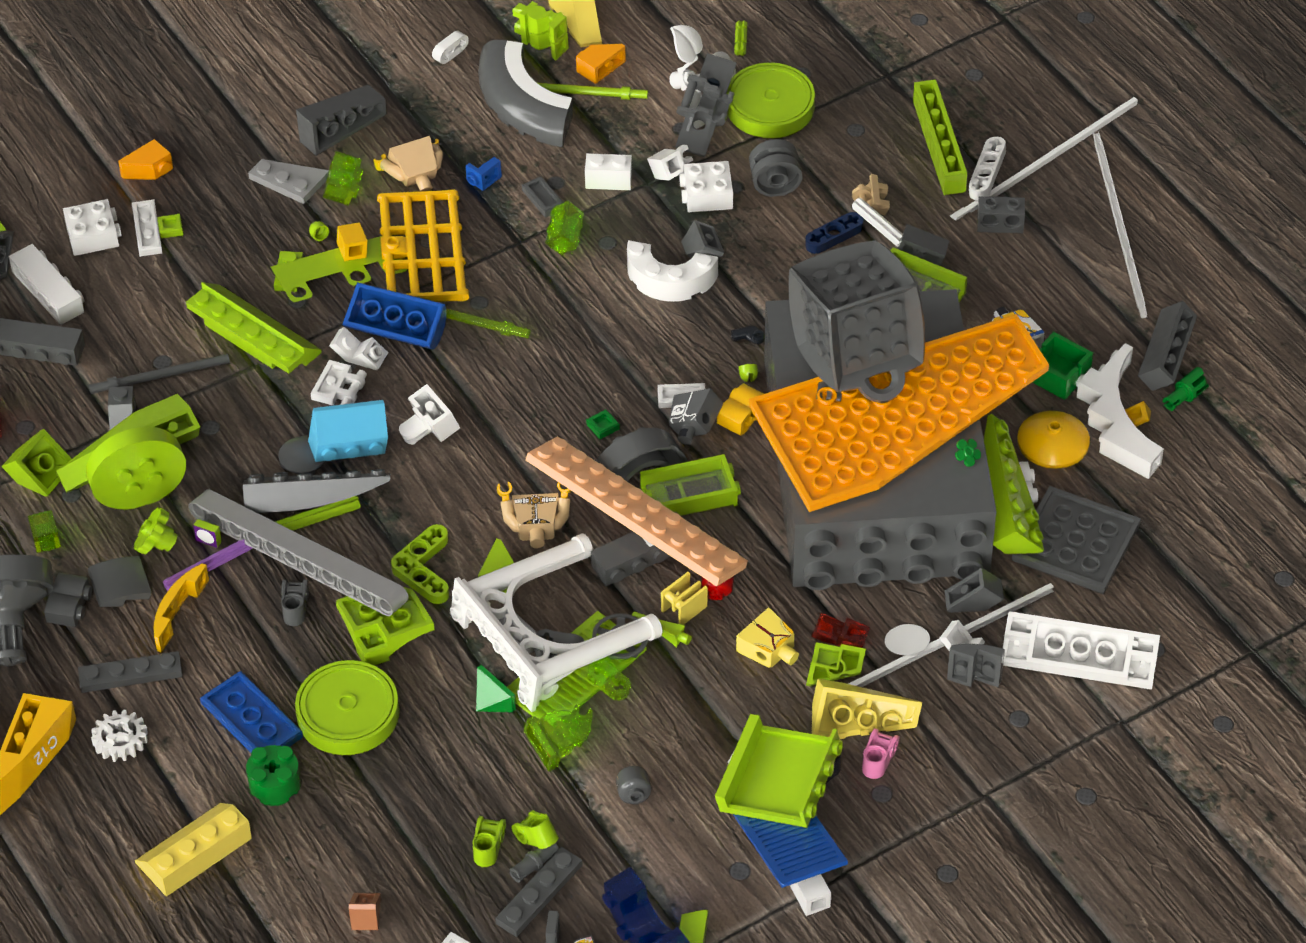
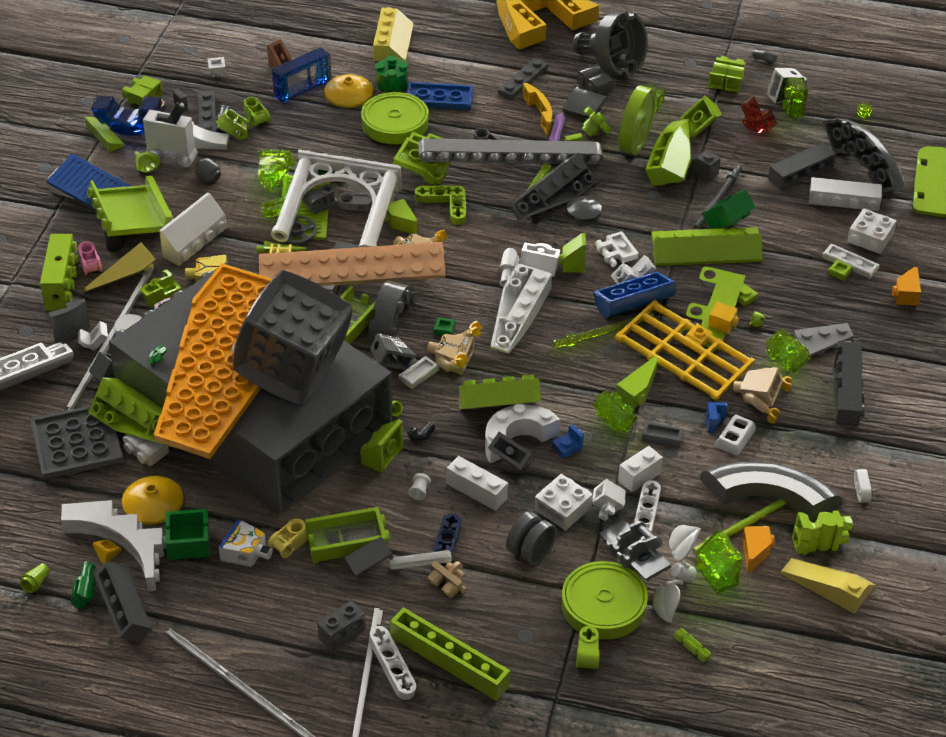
camera: 135 degrees right, 5 degrees down
(119, 735) = (486, 50): white gear -> none
(191, 327) = (729, 211): none -> green piece
(342, 816) = (348, 91): none -> yellow dish
(348, 431) = (567, 217): medium azure slope -> none
(382, 842) = (301, 74): none -> clear blue door
(394, 391) = (573, 255): none -> lime slope
(467, 435) = (508, 264): none -> white arm
(485, 155) = (735, 447): none -> white piece
(507, 241) = (637, 385): none -> lime slope
(517, 376) = (519, 305): none -> white wedge
(594, 851) = (209, 140): none -> white slope
(624, 234) = (569, 442): none -> blue bracket
(631, 381) = (455, 350): none -> tan torso
(643, 830) = (170, 133): none -> white piece
(649, 61) = (719, 562): none -> clear neon green slope
(652, 297) = (499, 393): none -> lime slope
(667, 134) = (648, 513): none -> white beam
(686, 857) = (146, 161): none -> lime piece
(736, 701) = (192, 229): none -> white slope
(759, 251) = (477, 483): none -> white brick
(827, 80) = (588, 648): none -> lime piece
(932, 739) = (59, 271): none -> lime brick
(972, 312) = (289, 537): none -> light yellow piece
(1225, 426) = (34, 578): none -> lime cone

